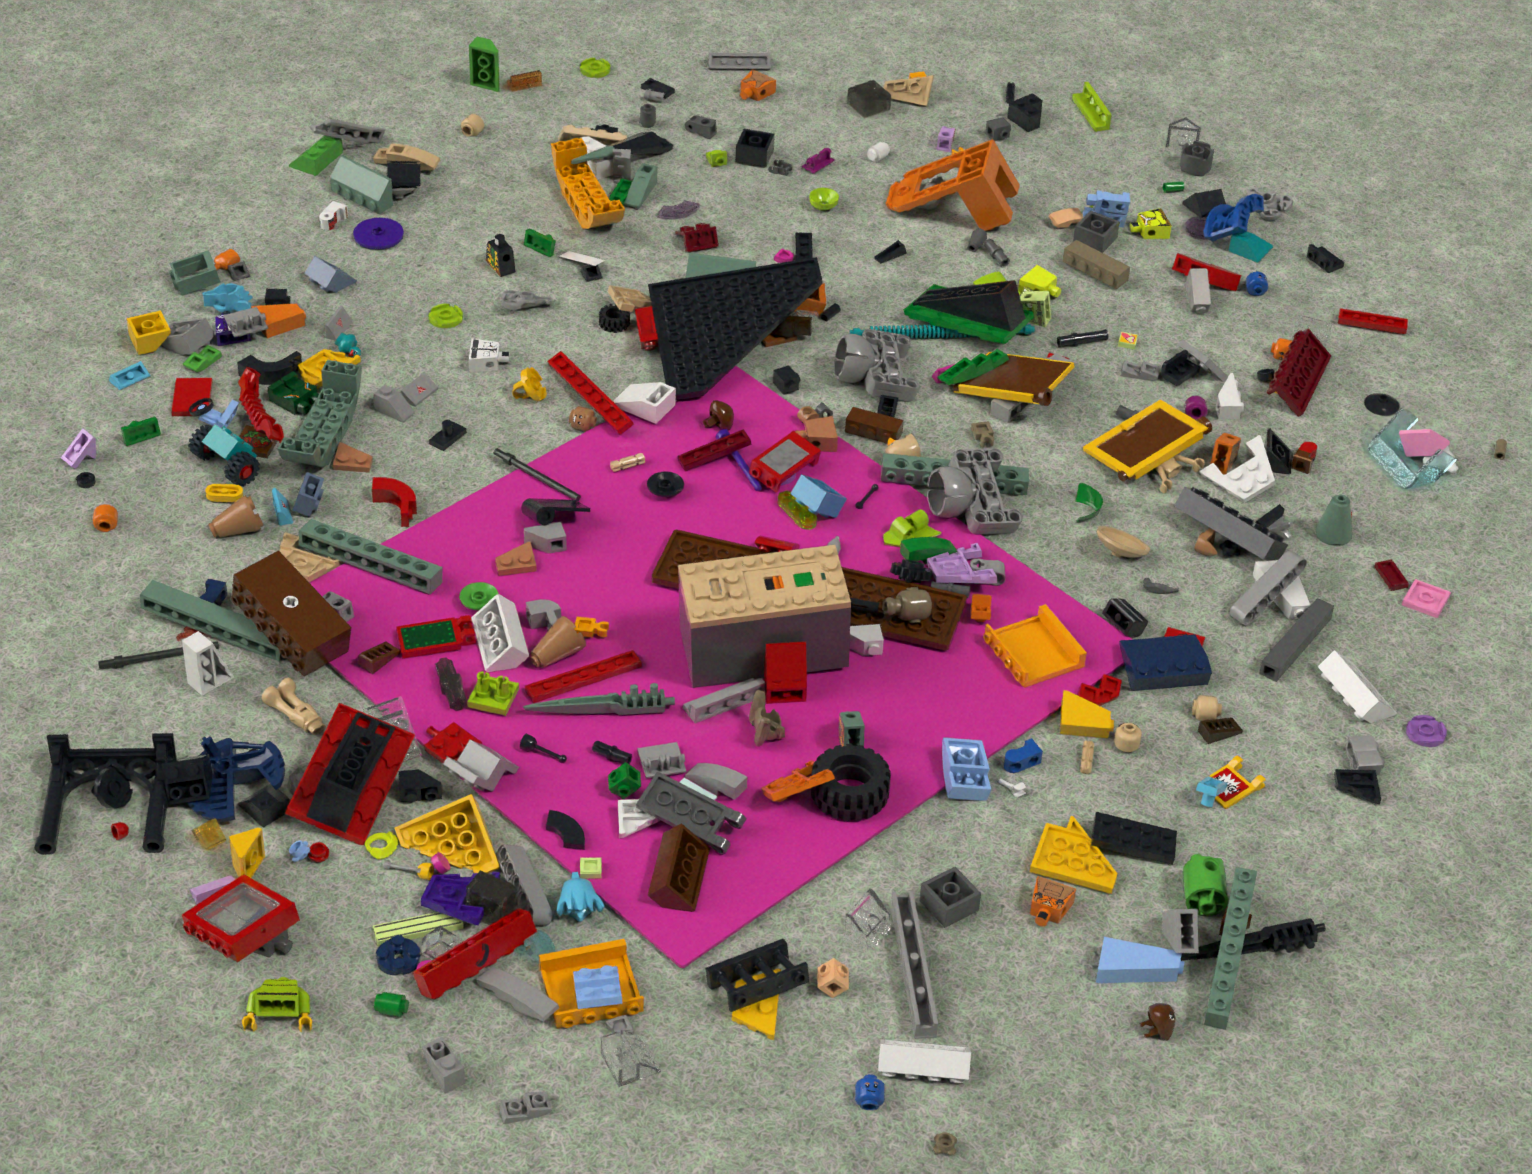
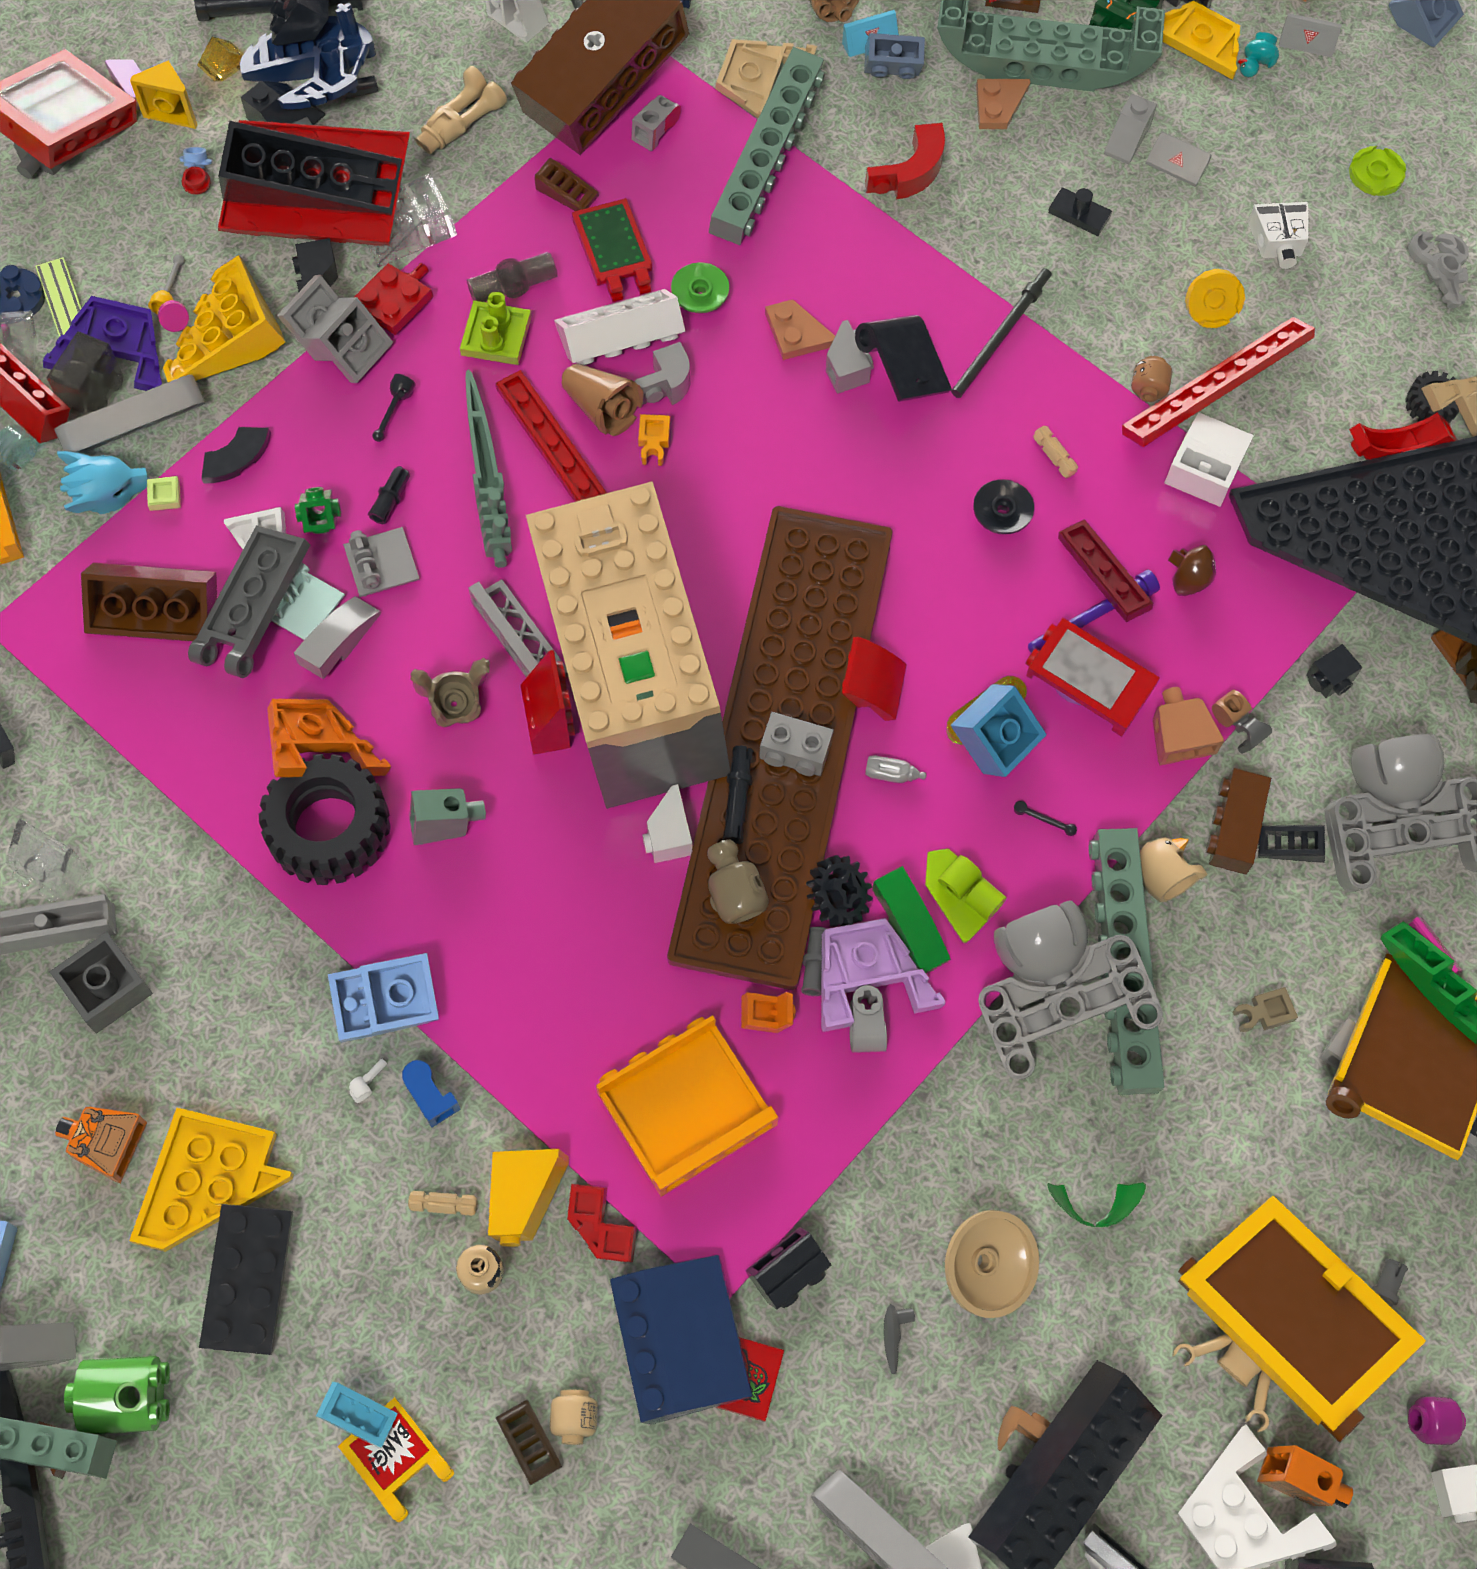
camera: 85 degrees right, 25 degrees up
(382, 853) = (199, 252): neon yellow piece -> none

